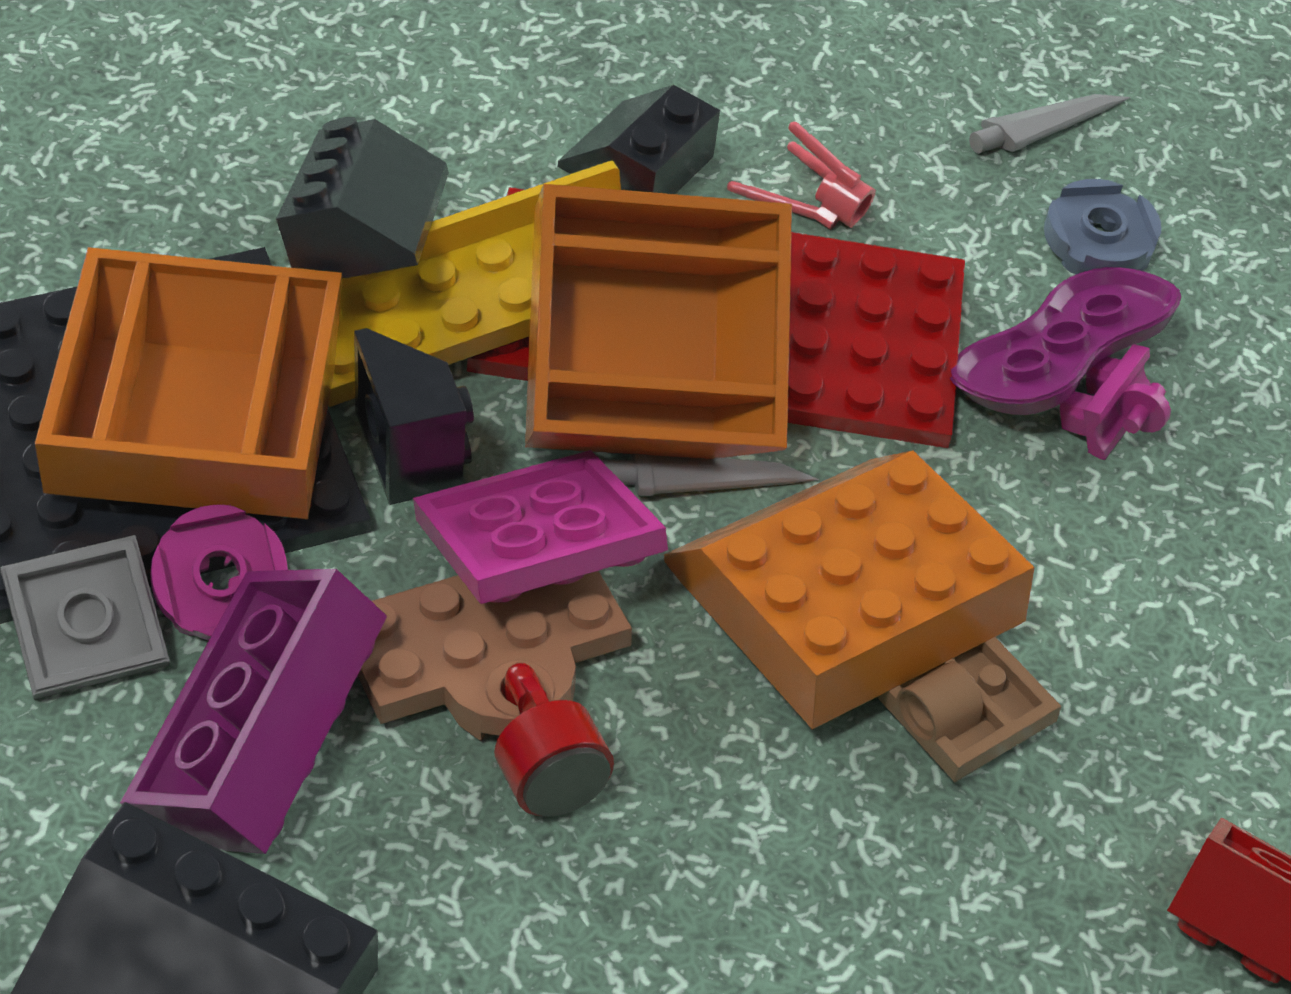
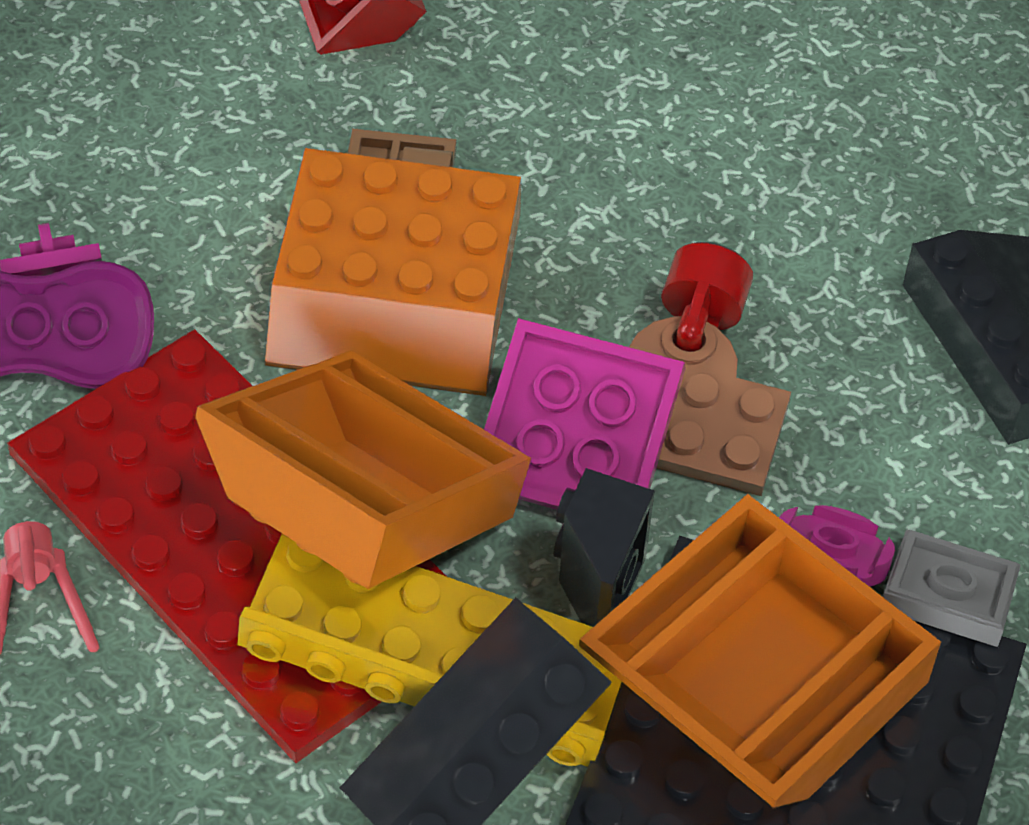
camera: 135 degrees left, 0 degrees up
(257, 707) = (881, 433): magenta slope -> none
(652, 139) = (140, 710): black slope -> none

